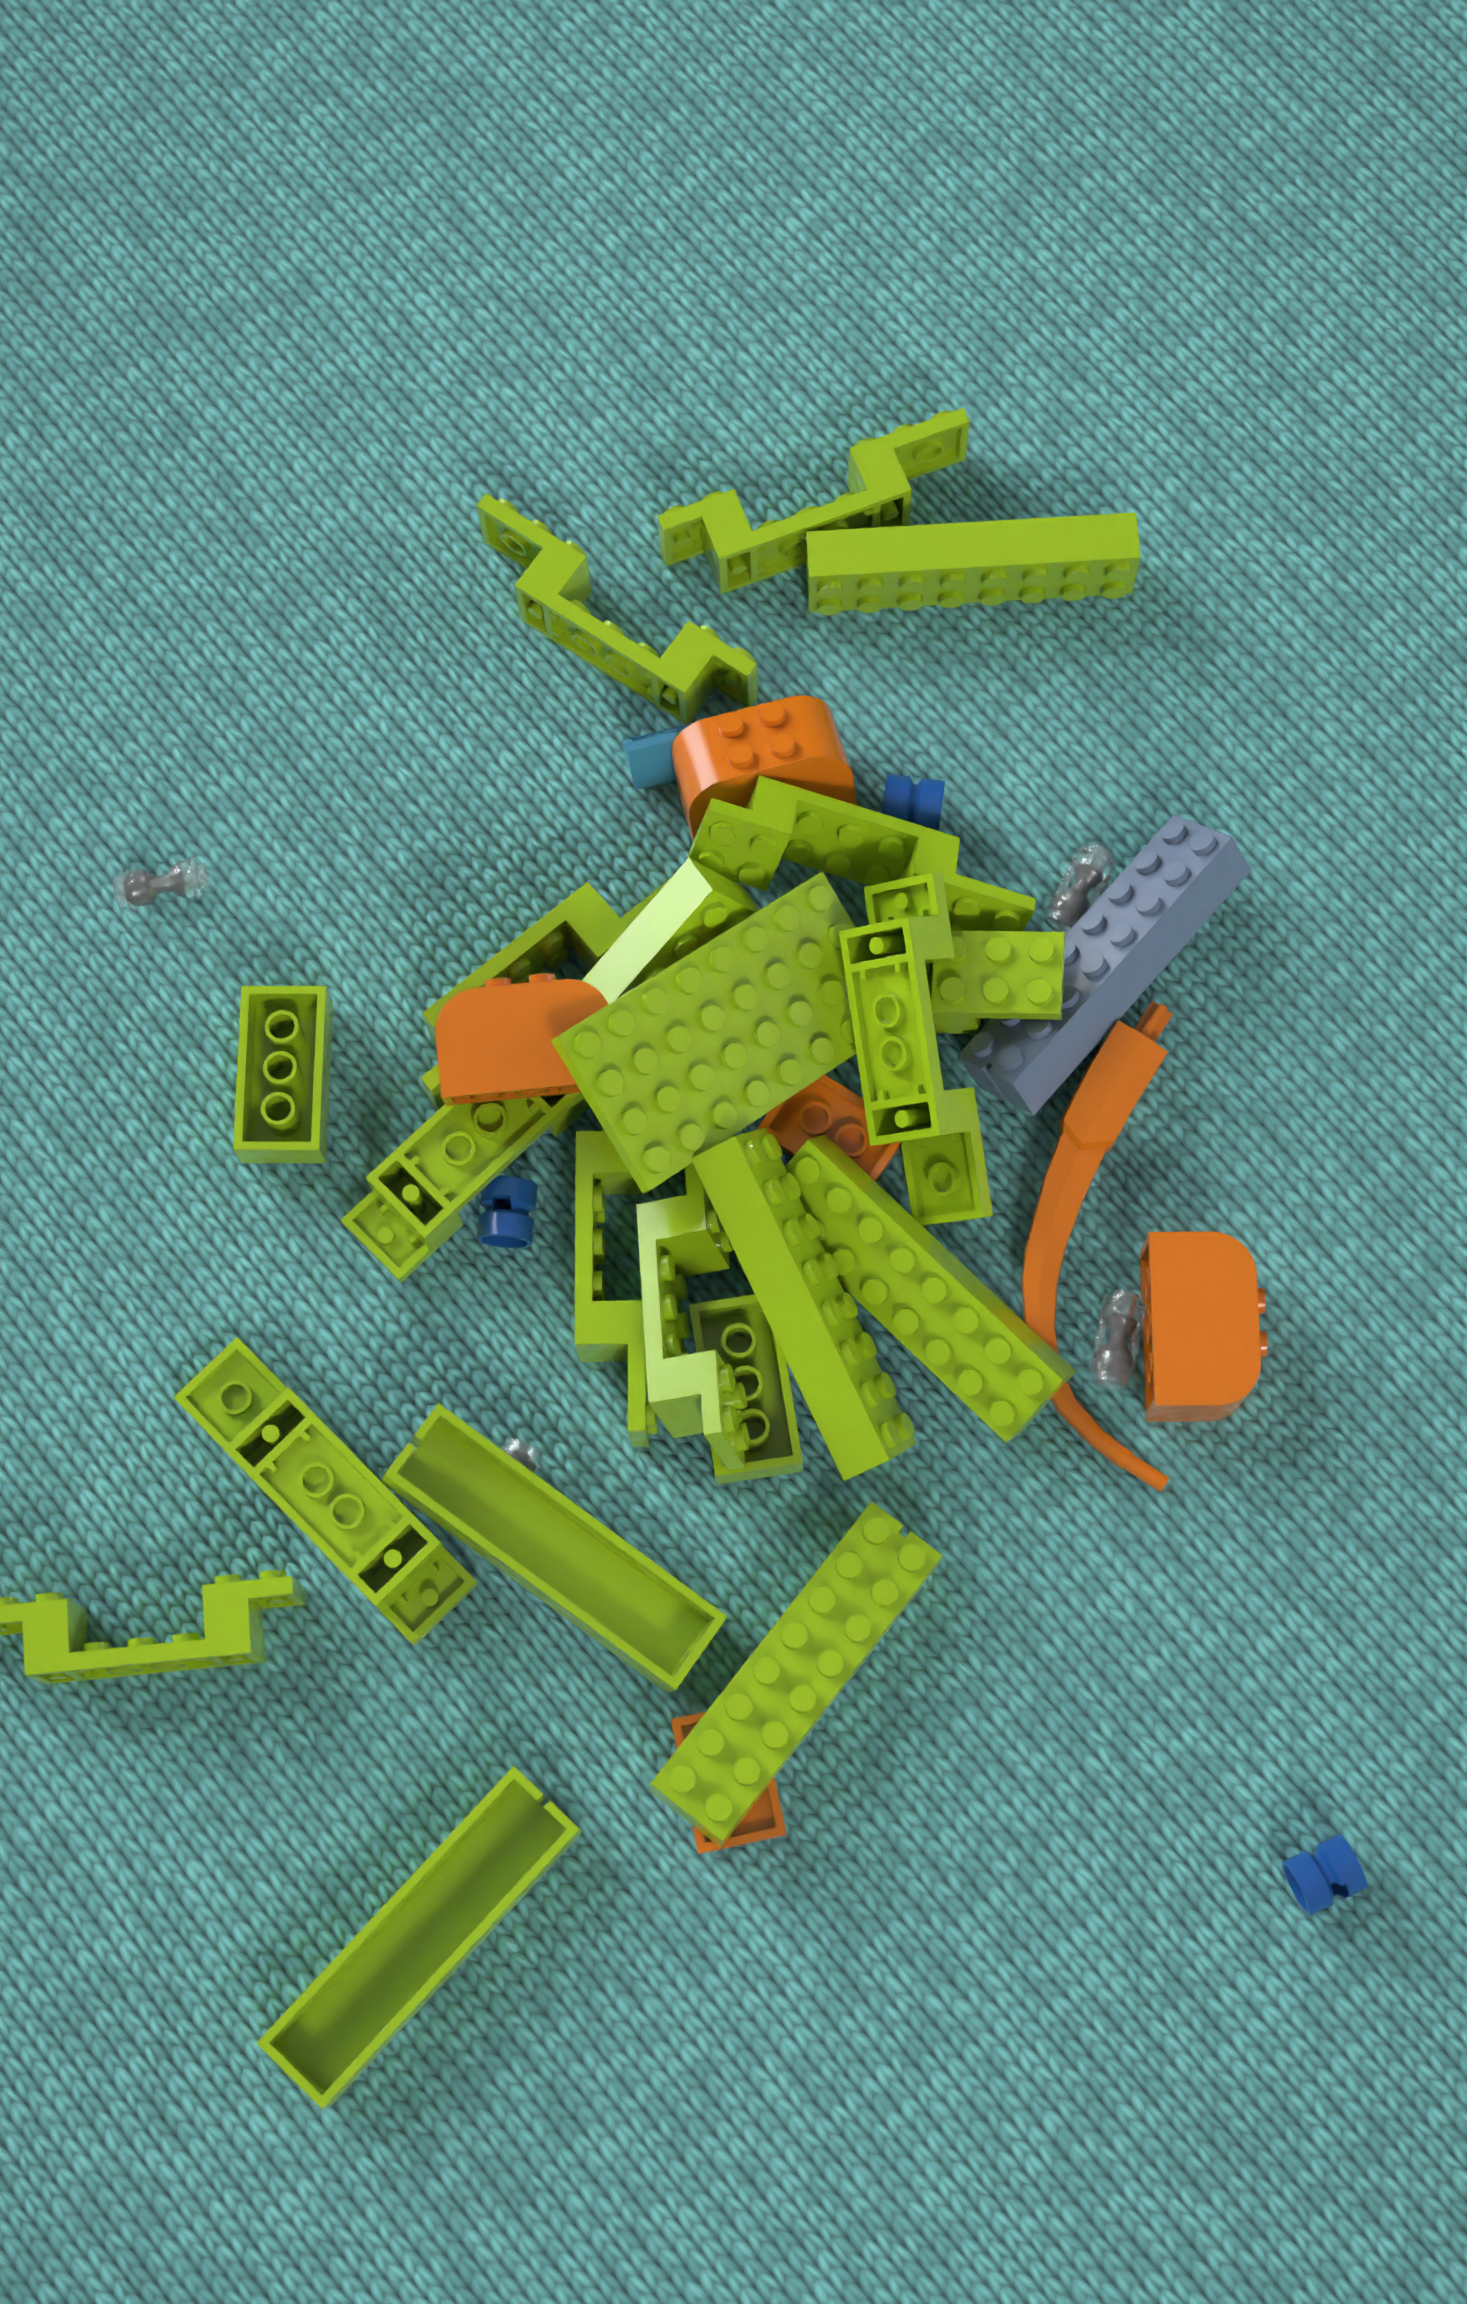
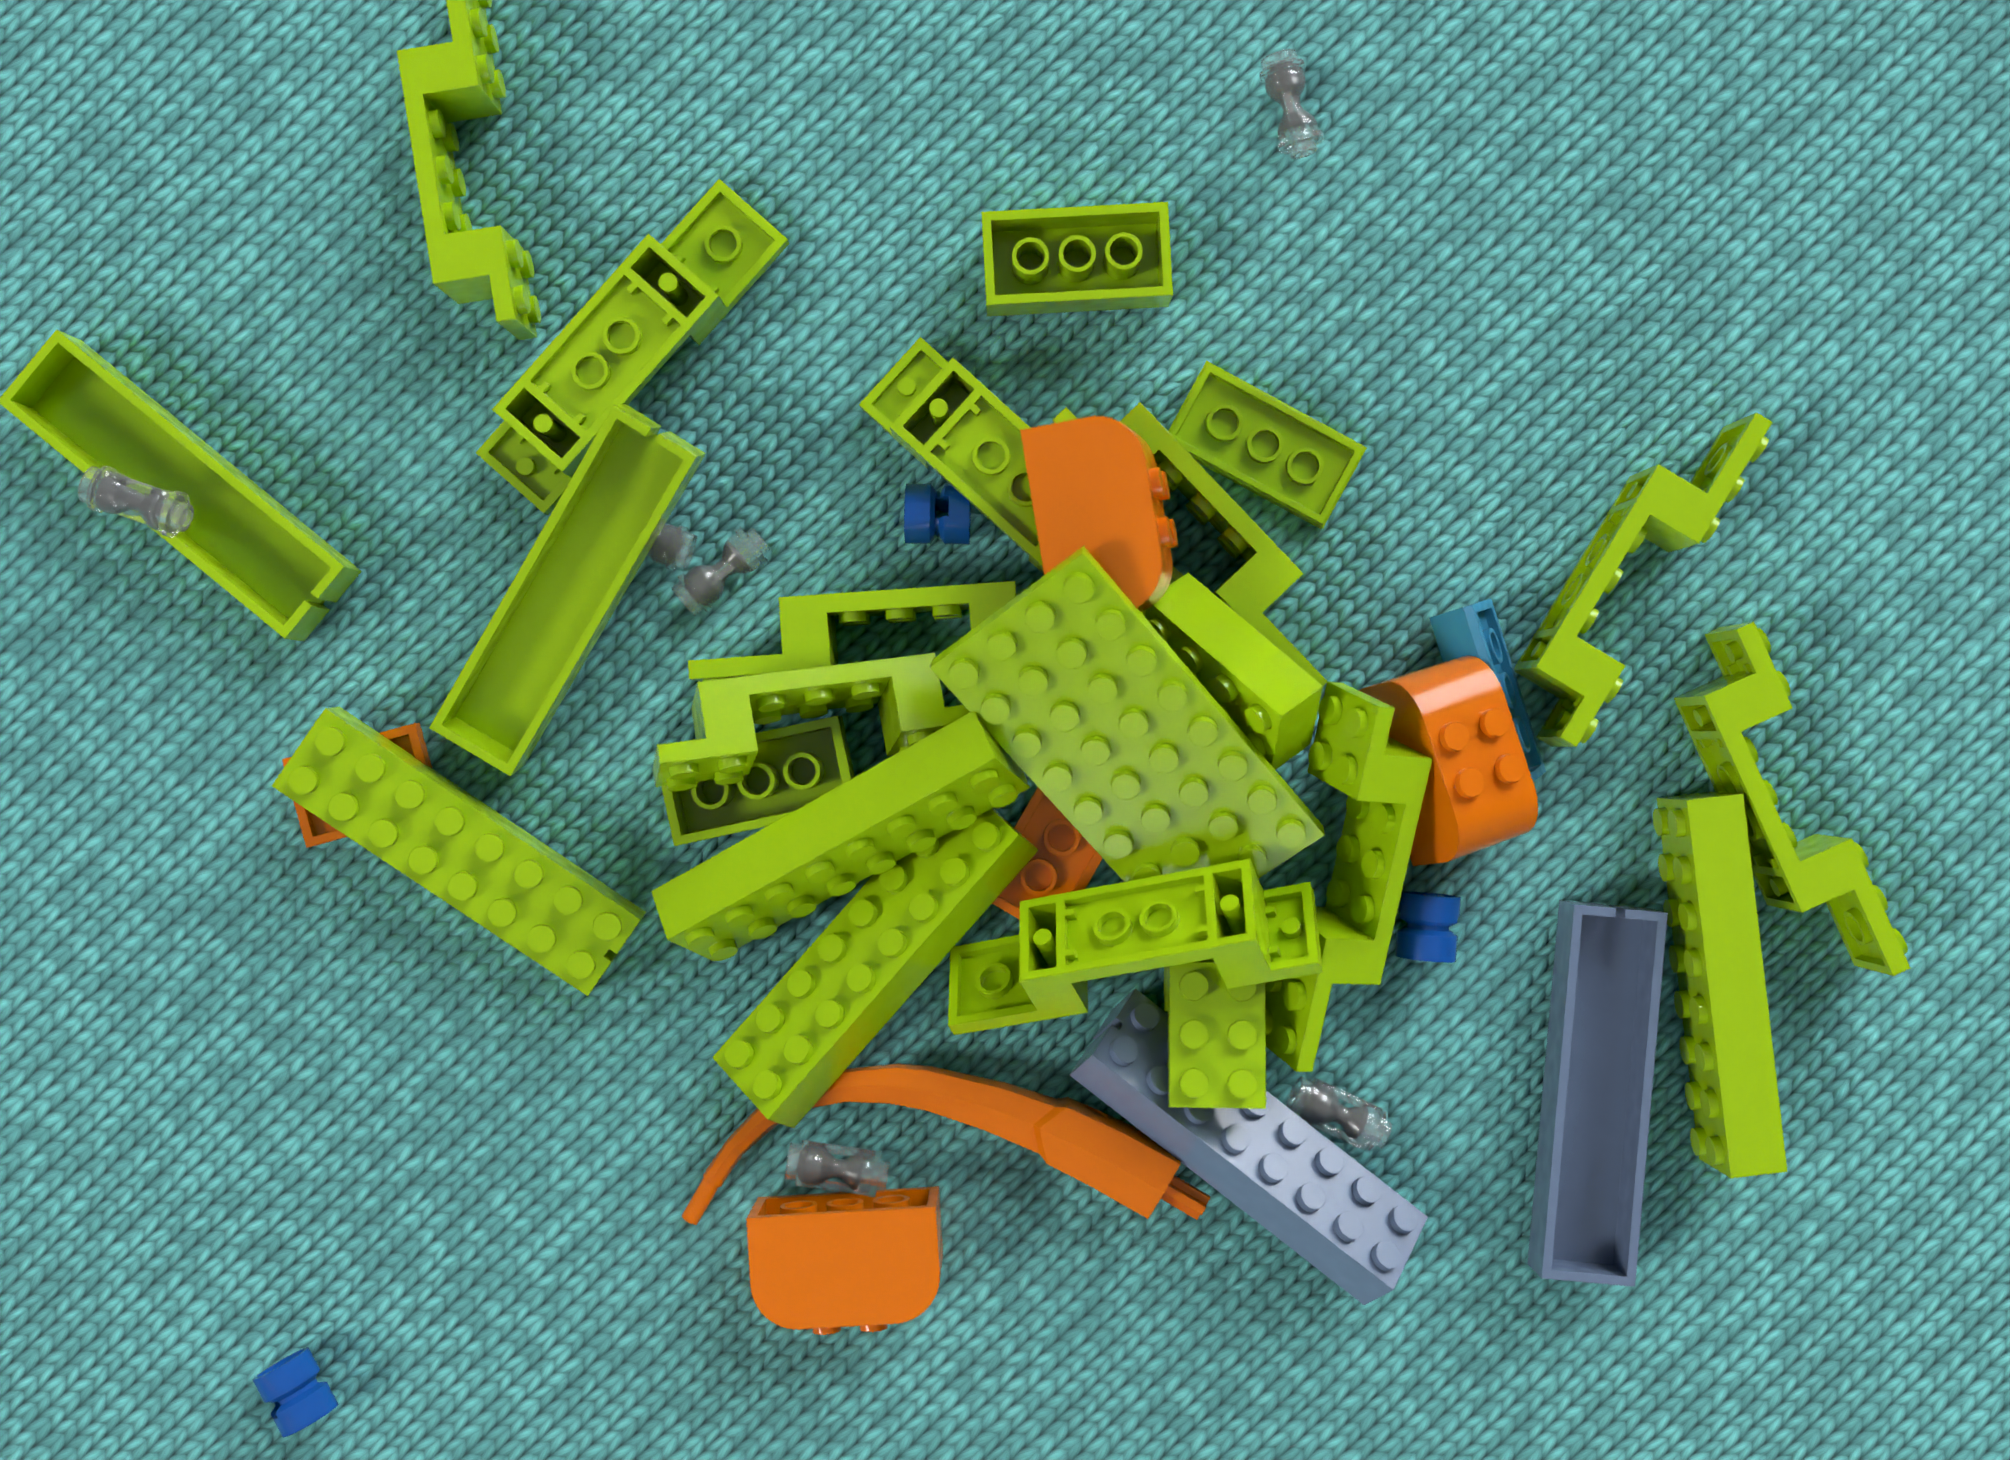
camera: 80 degrees right, 15 degrees up
(426, 1978) = (116, 493): none -> clear piece
(467, 920) = (1265, 445): none -> lime tile
(555, 1432) = (706, 583): none -> clear piece
(1066, 669) = (1597, 1093): none -> sand blue piece

